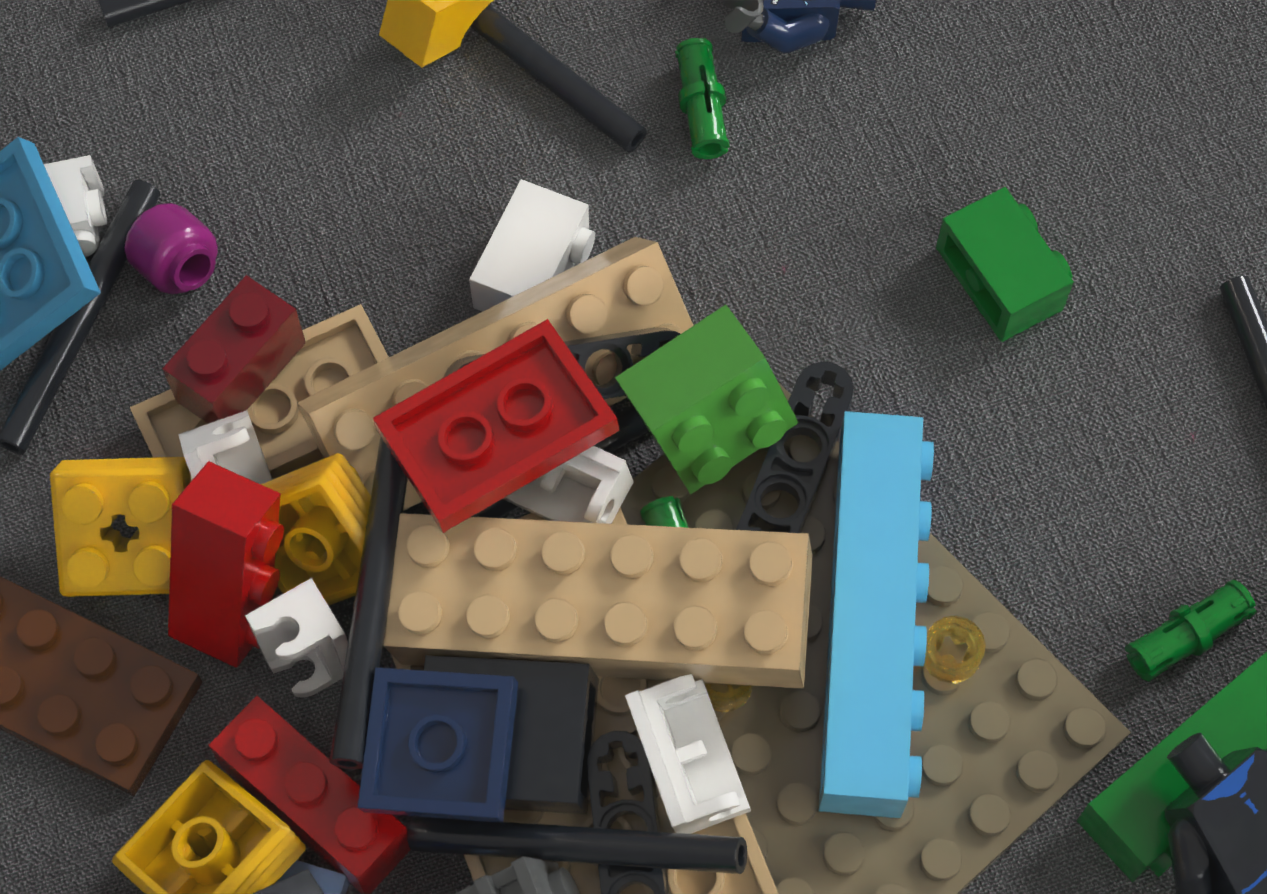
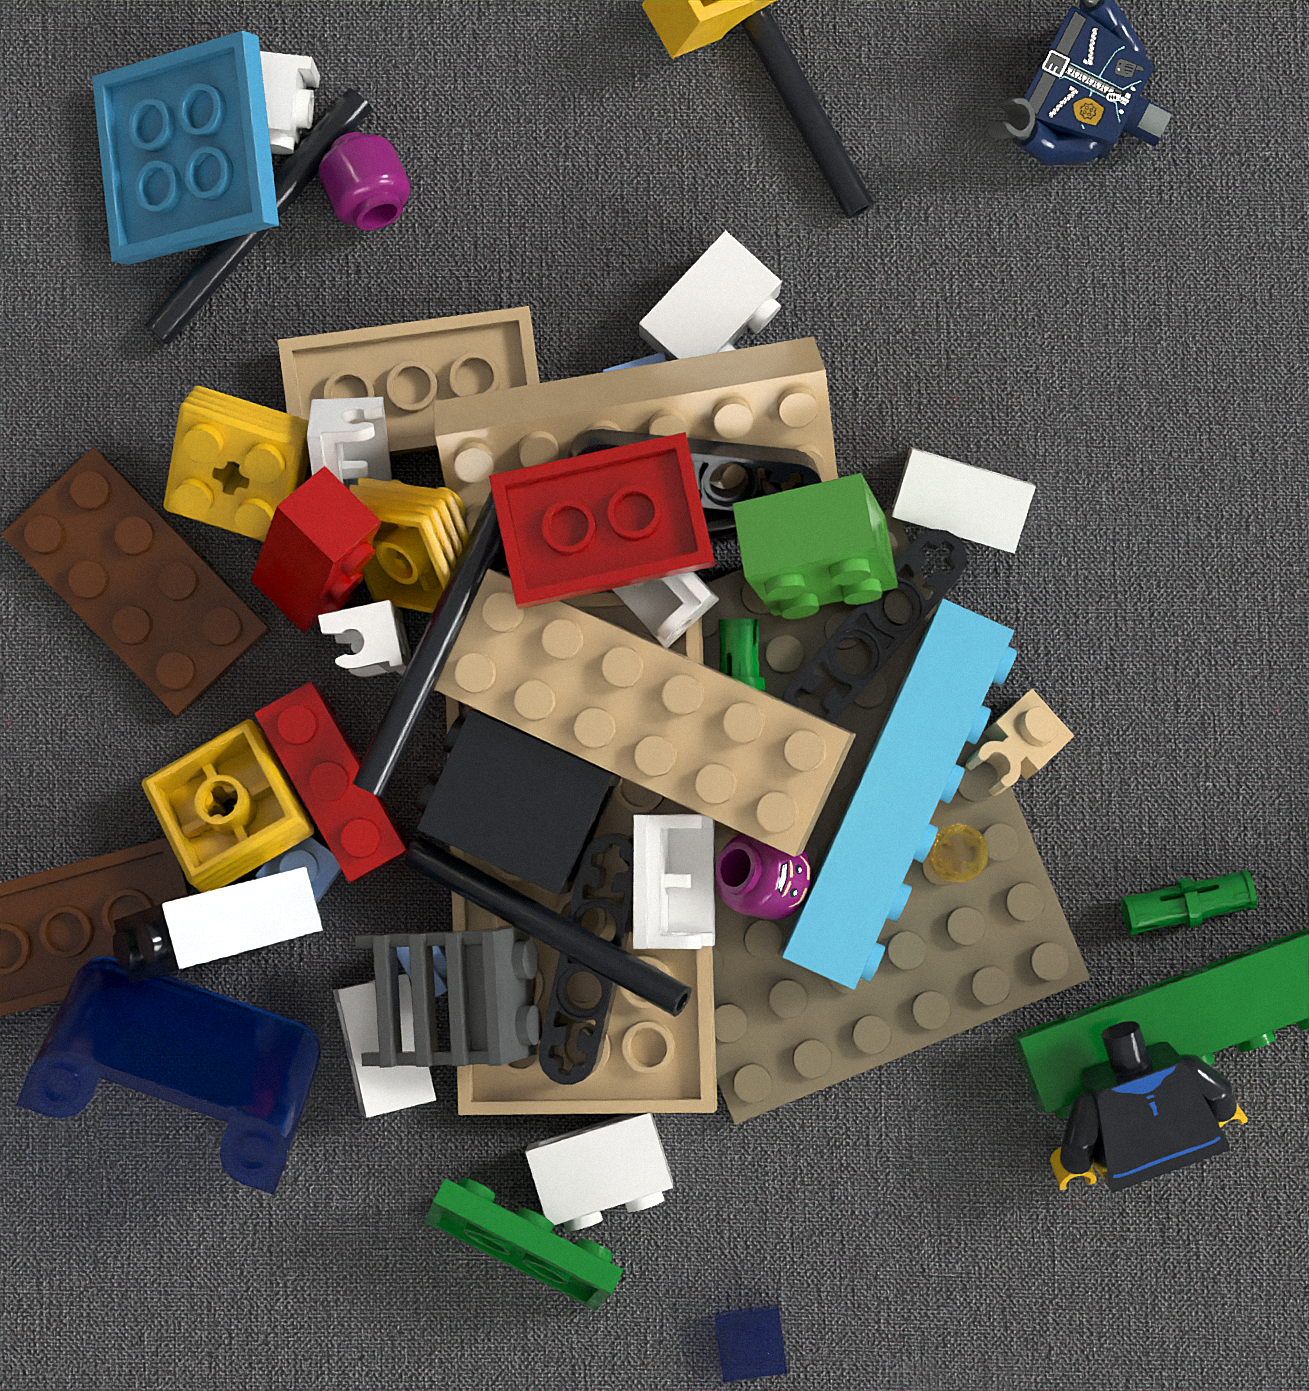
camera: 20 degrees right, 20 degrees up
(235, 353) = (389, 330): dark red brick -> none
(438, 744) = (452, 803): dark blue plate -> none
(702, 98) = (941, 188): green pin -> none
(774, 726) = (762, 879): none -> magenta head
(835, 332) = (962, 500): none -> white hinge
(969, 532) = (1021, 741): none -> tan plate
(1004, 263) = (1170, 476): green brick -> none

